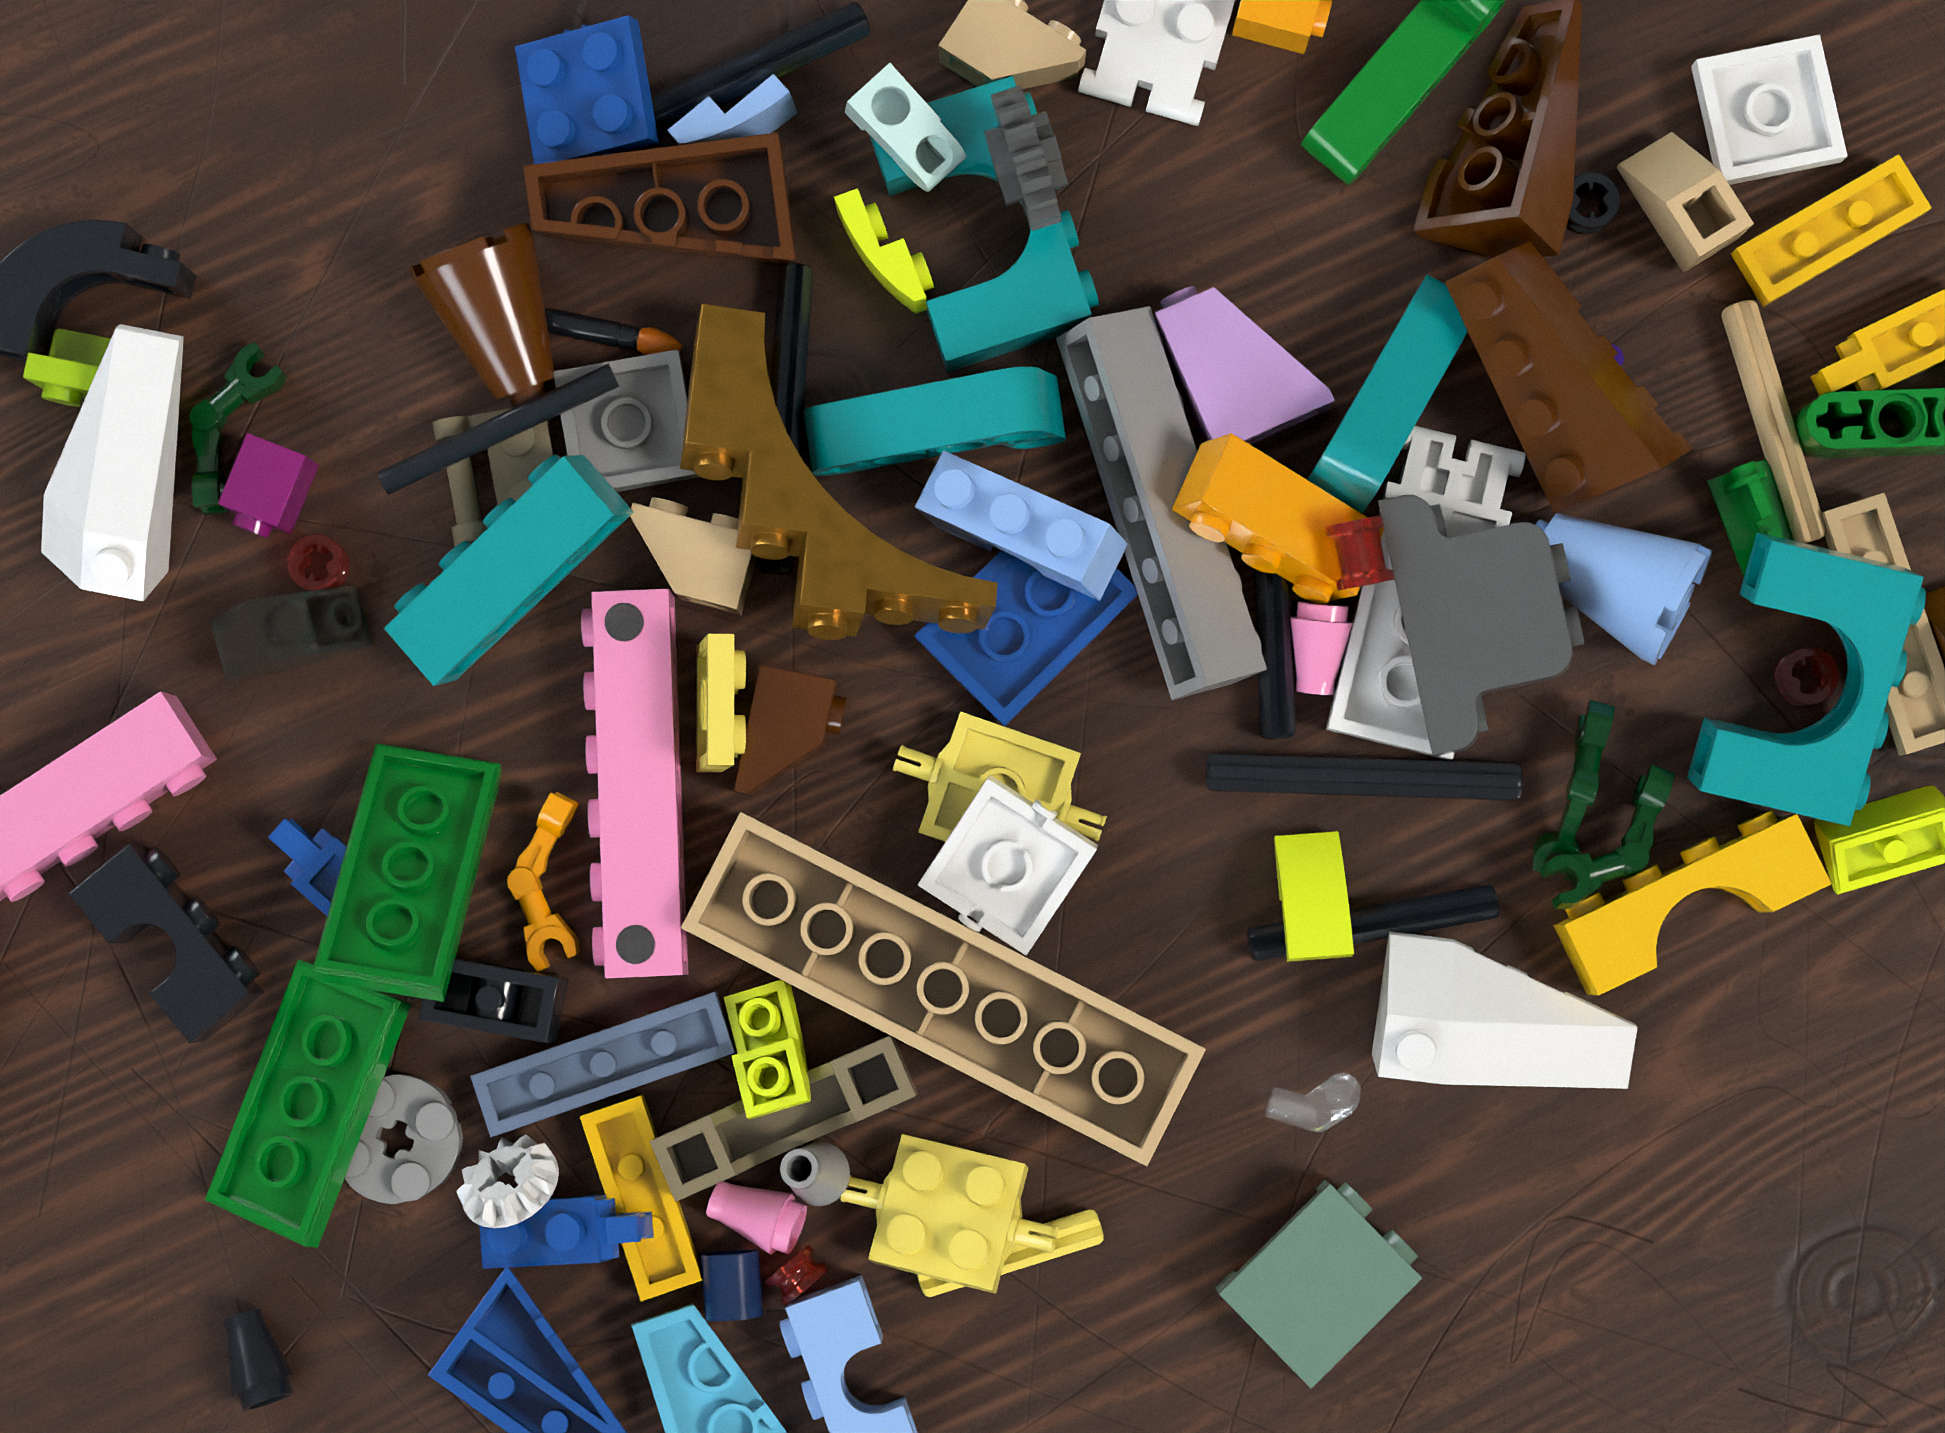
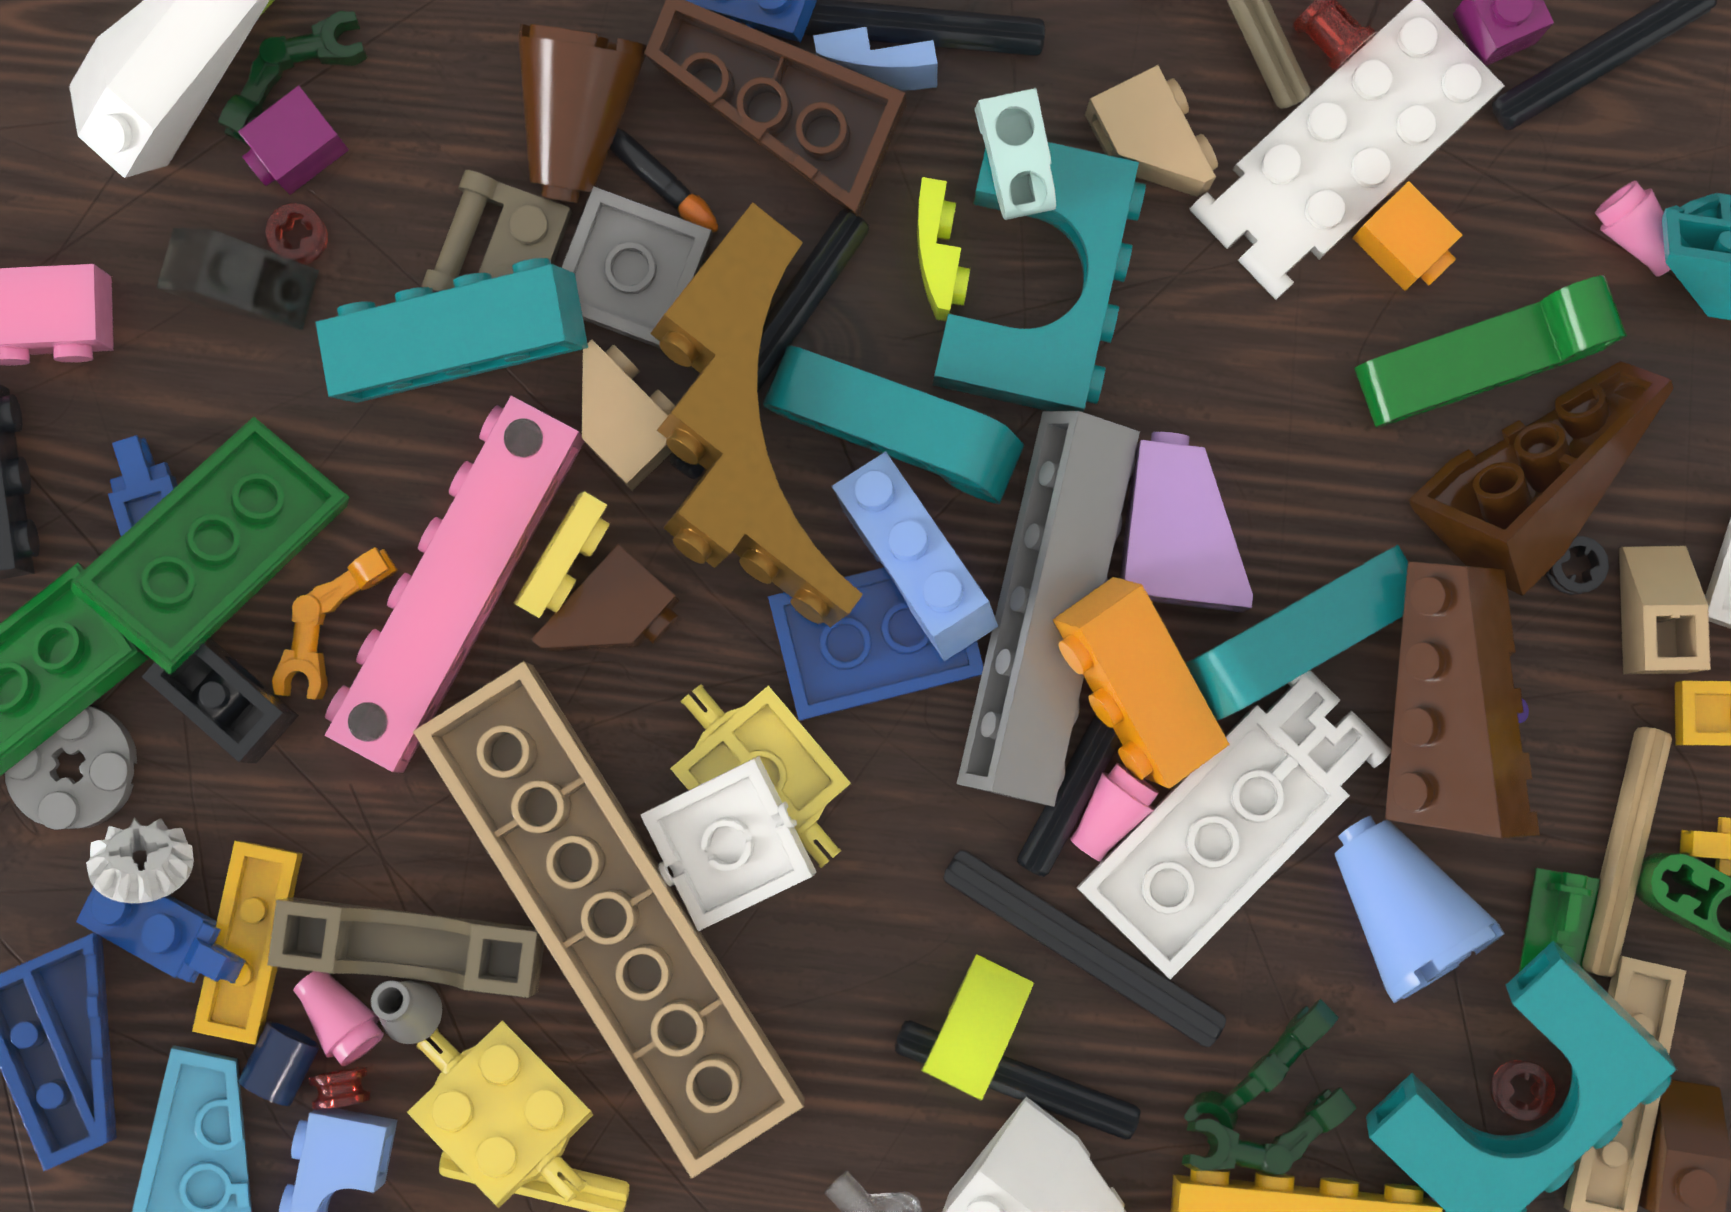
camera: 25 degrees right, 0 degrees up
(498, 429) = (515, 208): black bar -> none
(603, 1064) = (283, 807): sand blue plate -> none
(769, 1049) = (431, 880): neon yellow slope -> none
(1026, 158) = (1104, 240): dark grey gear -> none
(1359, 553) = (1192, 755): clear red bush -> none
(1476, 614) = (1263, 867): dark grey brick -> none

